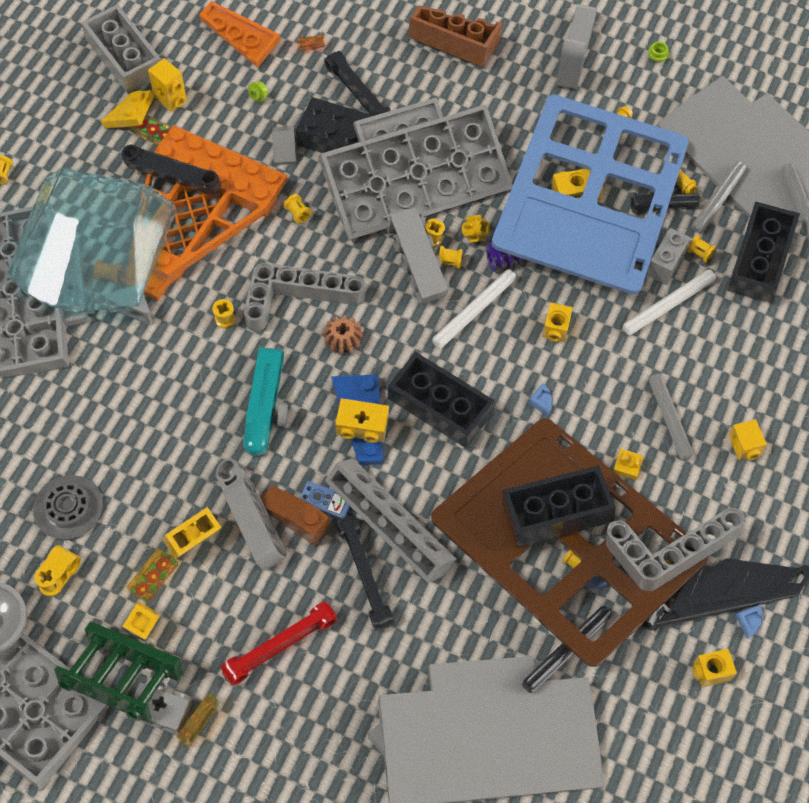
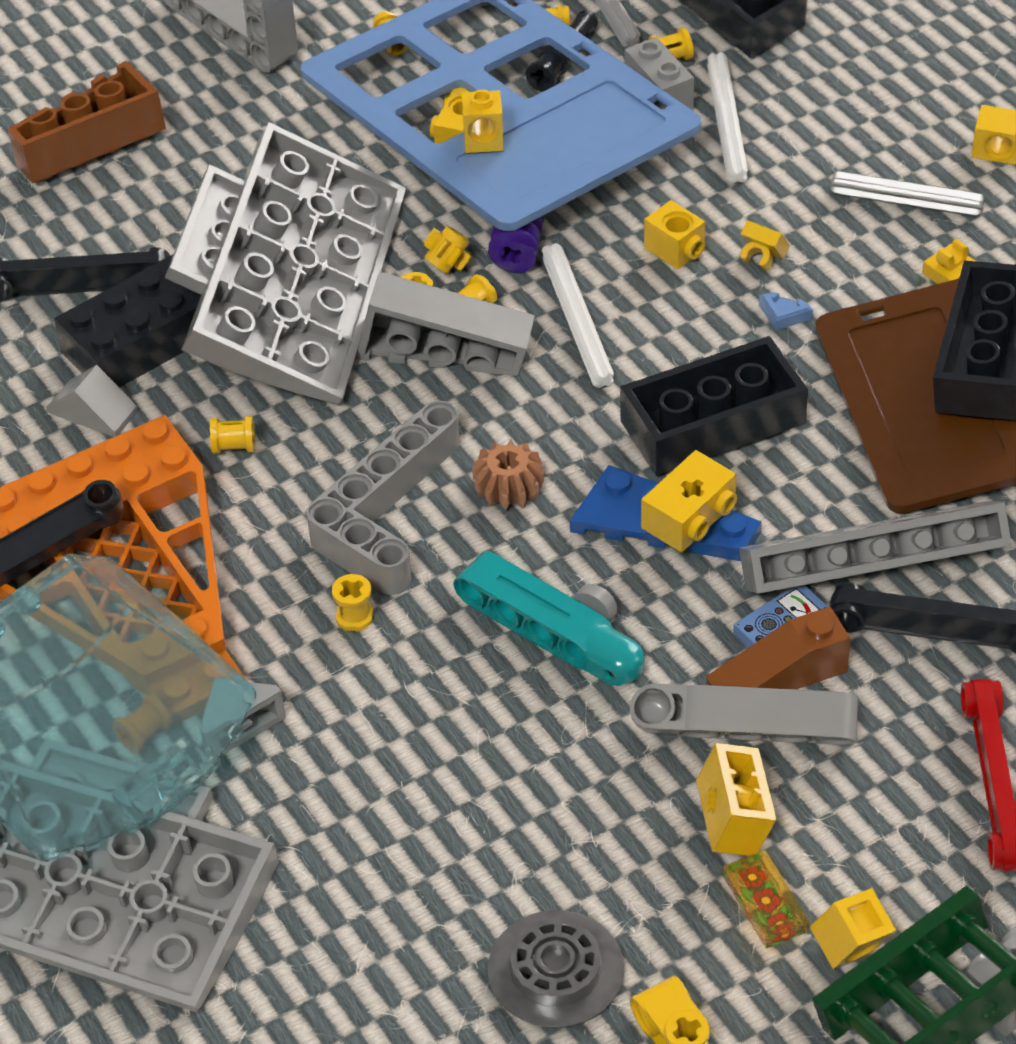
camera: 55 degrees left, 15 degrees down
(552, 193) = (482, 121): none -> yellow brick
(581, 366) = (765, 241): none -> yellow tile

